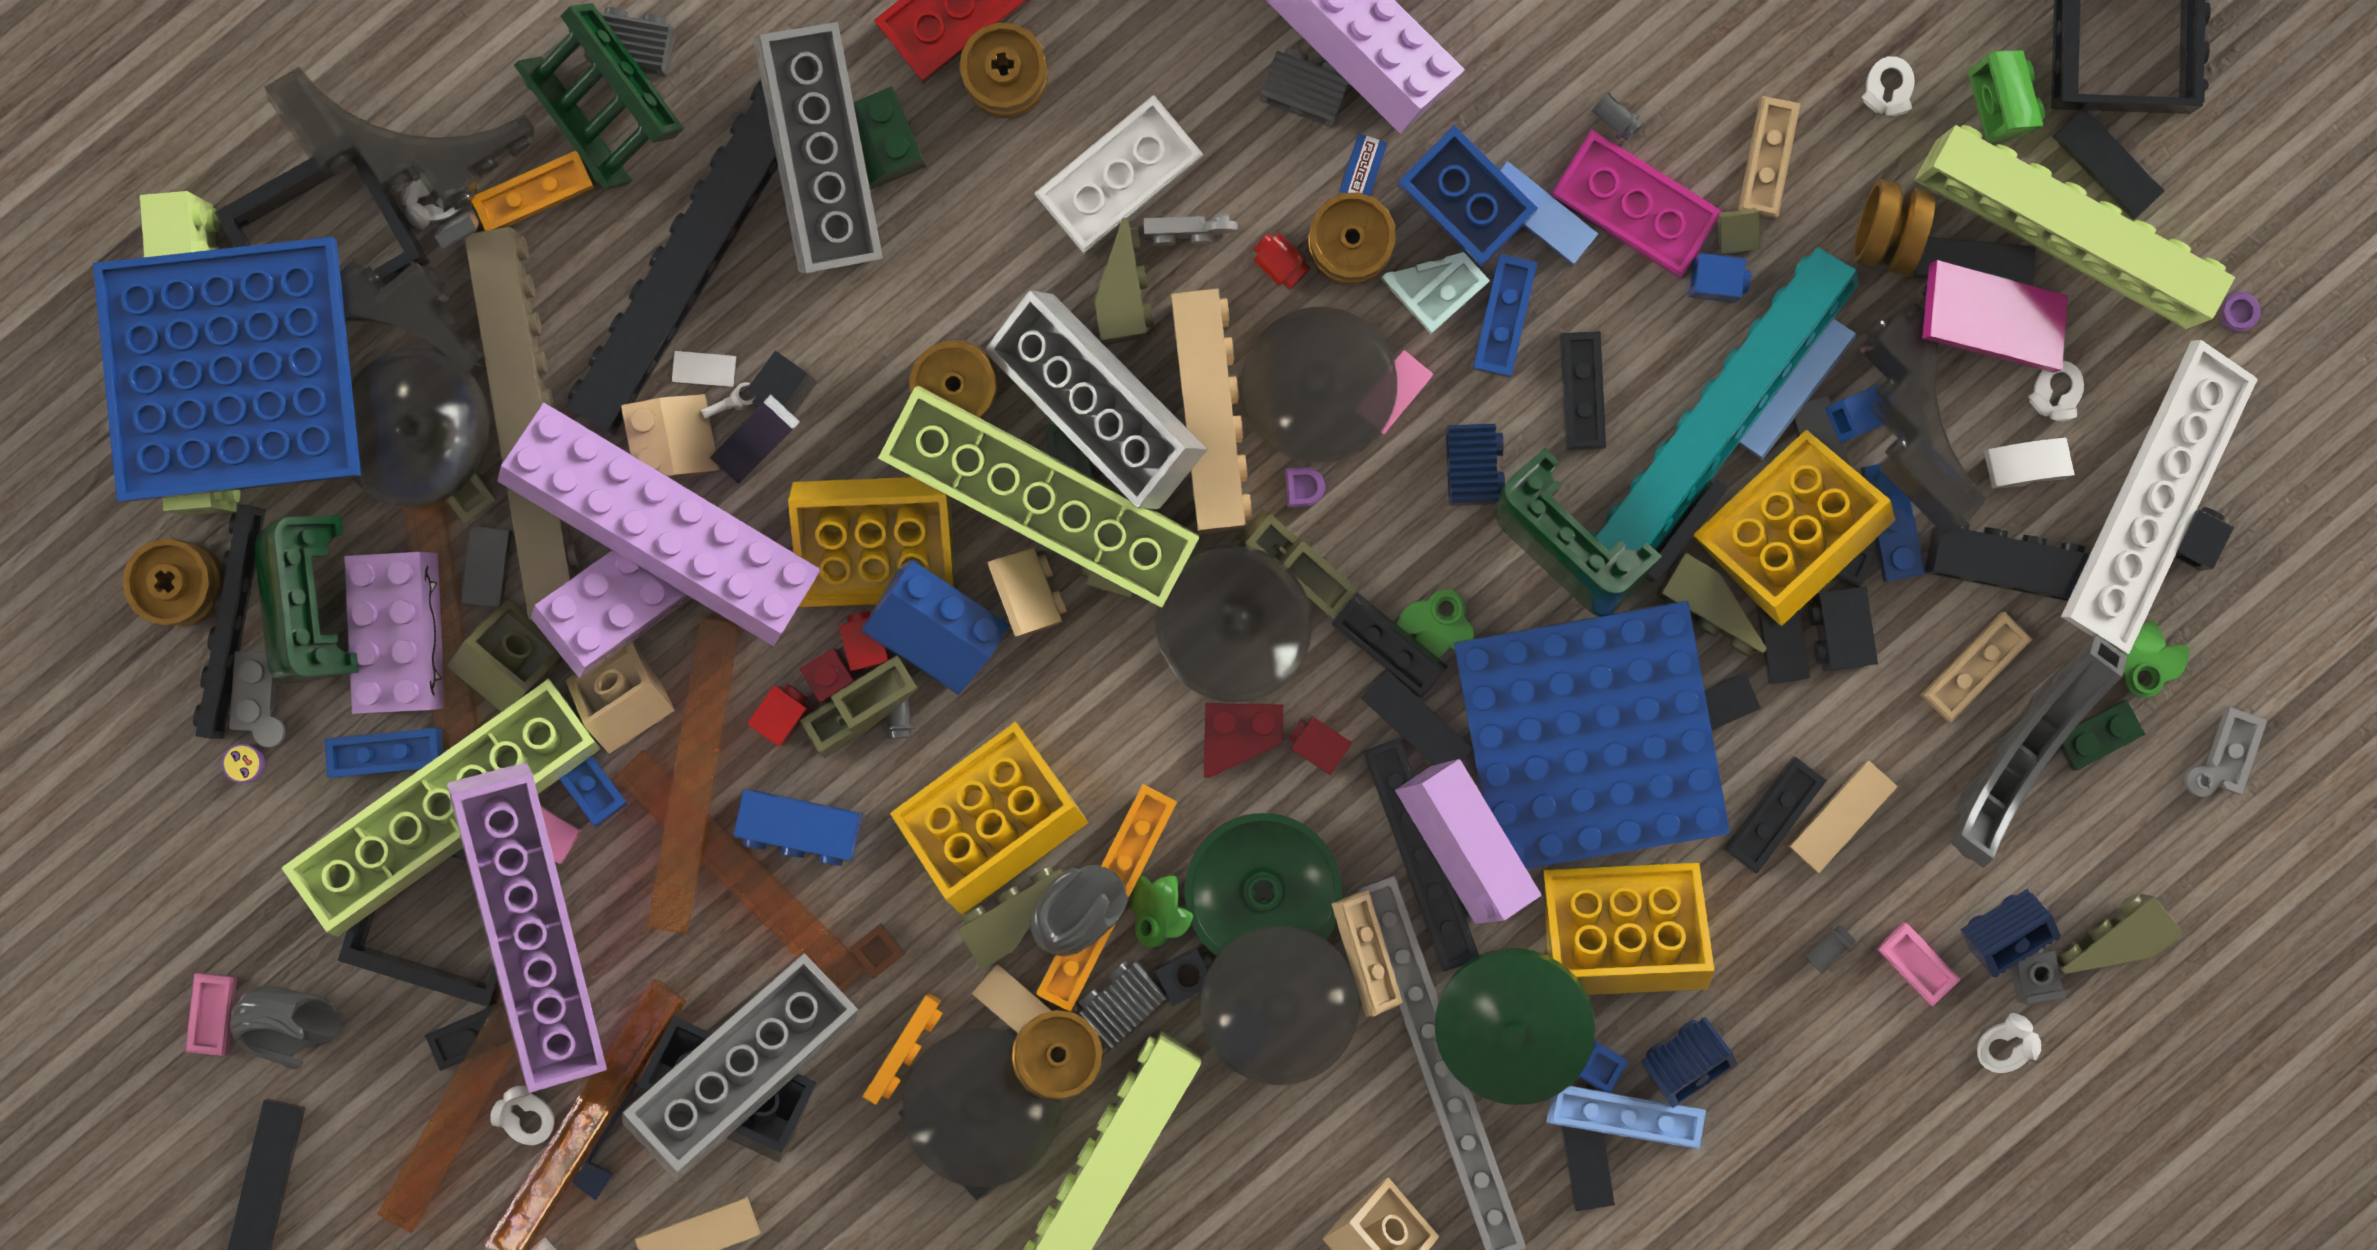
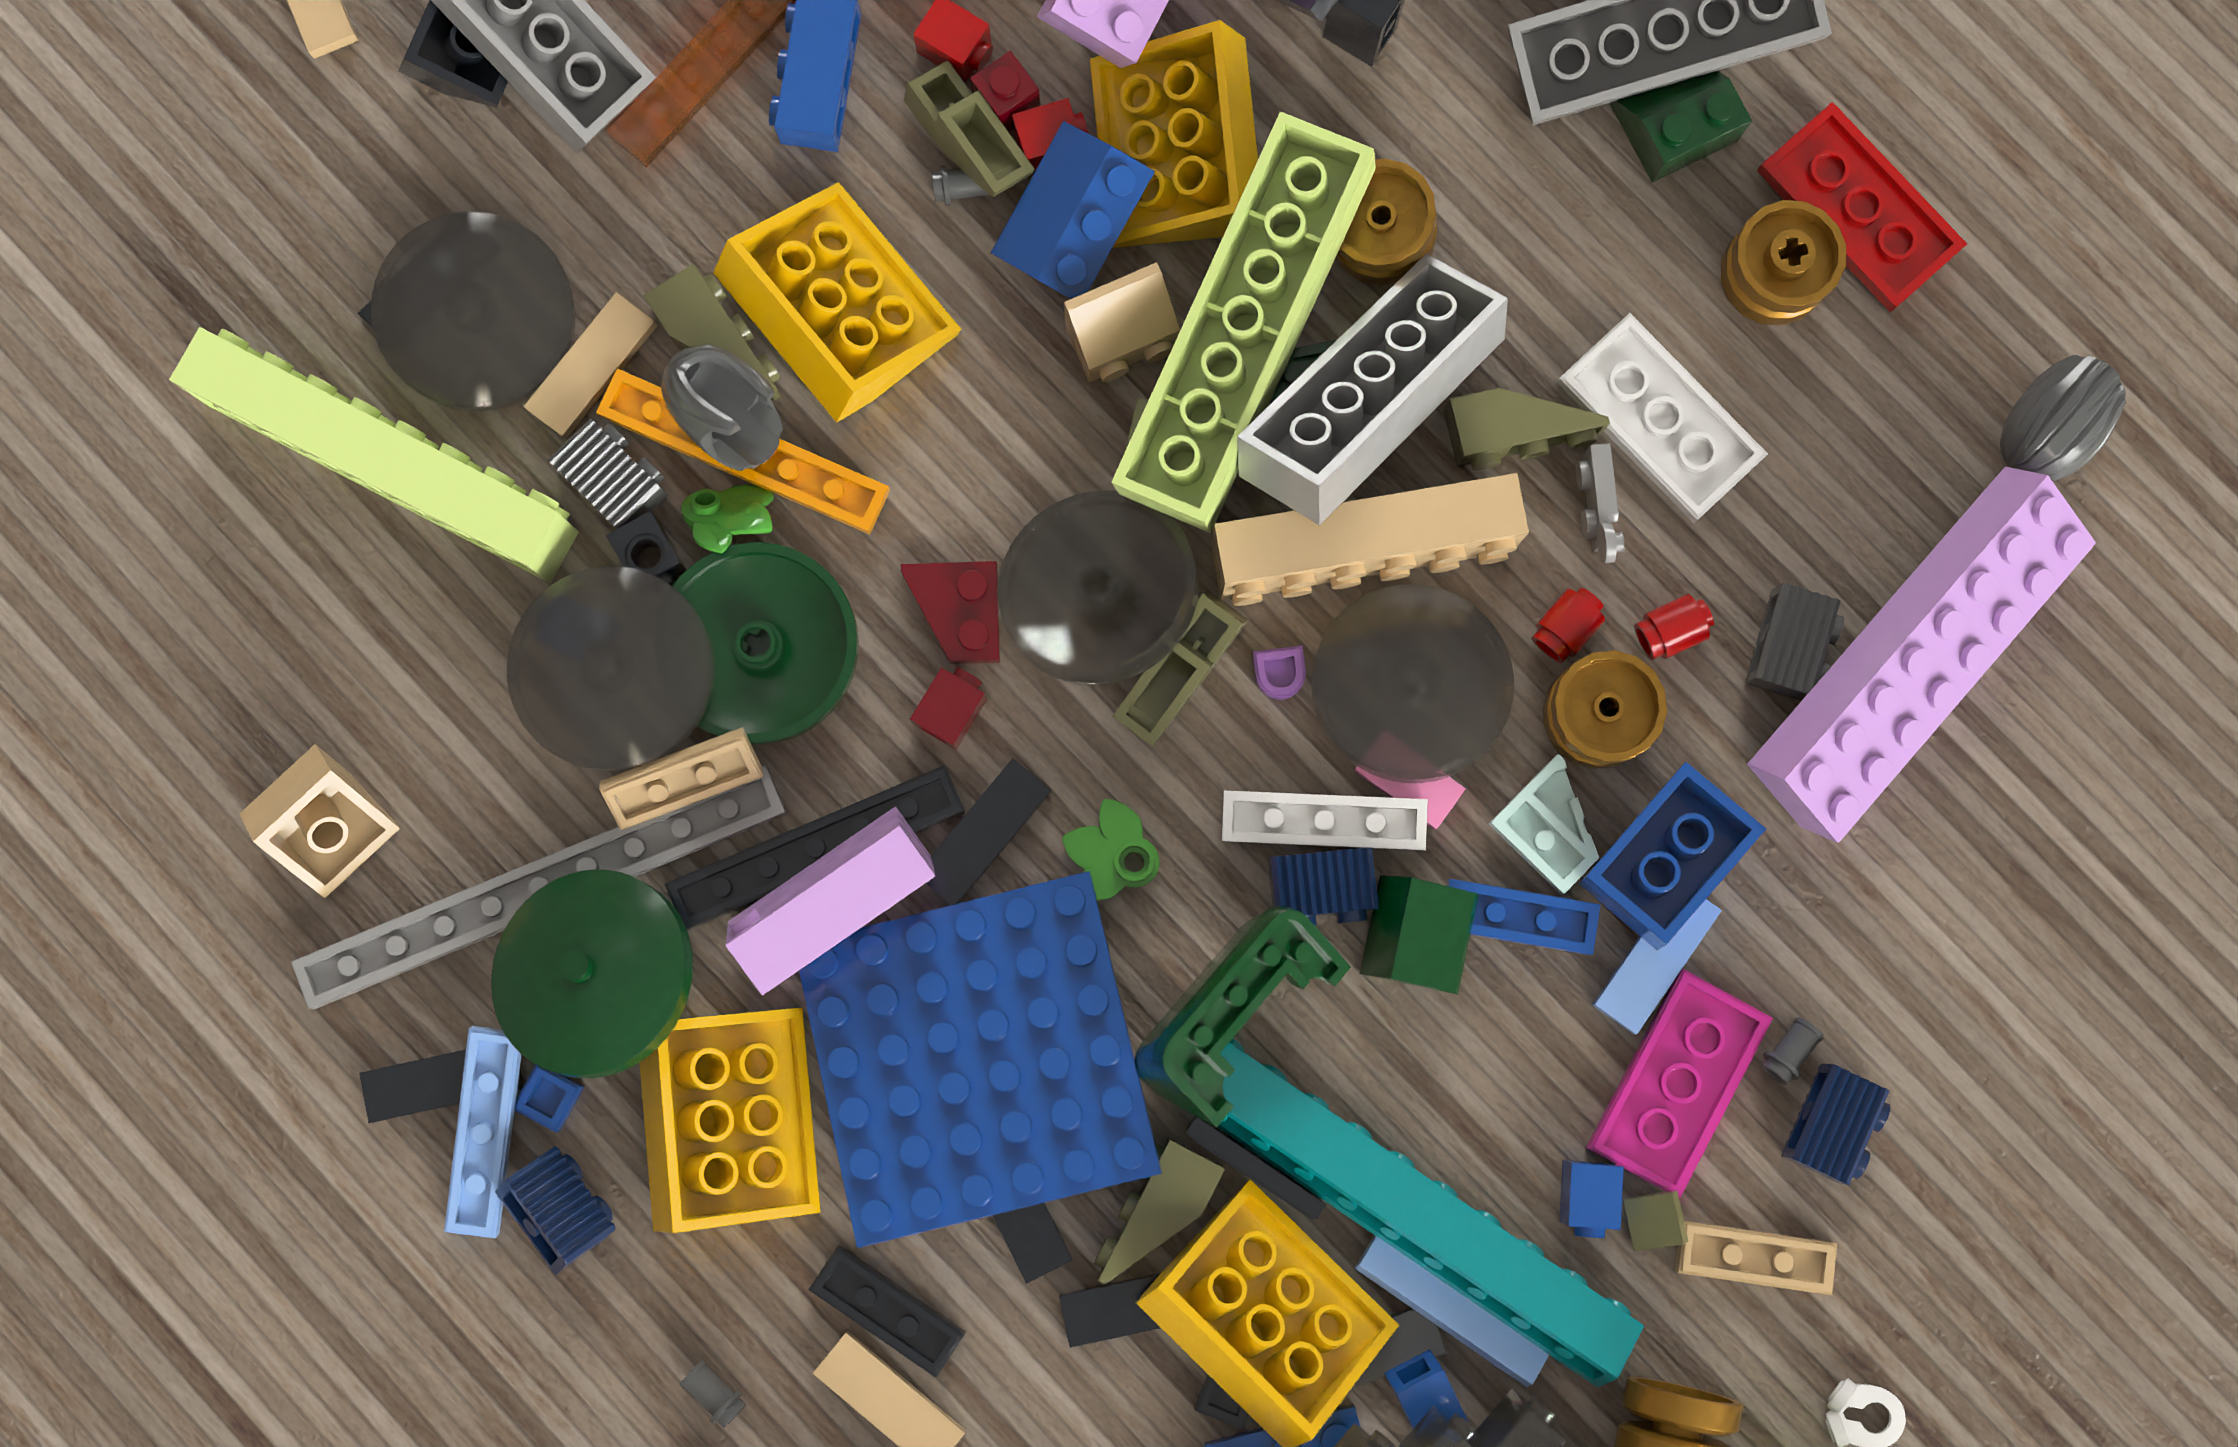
camera: 85 degrees right, 5 degrees down
(877, 950) = (665, 174): reddish brown plate -> none
(904, 1050) = (543, 212): light orange plate -> none
(1077, 1067) = (554, 365): pearl gold wheel -> none
(1287, 179) = (1674, 627): none -> red brick
(1363, 165) = (1700, 727): sticker -> none
(1389, 645) = (1083, 791): black tile -> none
(1423, 460) = (1324, 820): none -> white plate
(1515, 394) = (1419, 933): none -> dark green slope
(1583, 390) = (1429, 1026): black tile -> none
(1675, 88) = (1837, 1124): none -> dark blue brick
(1843, 629) = (1136, 1388): black brick -> none

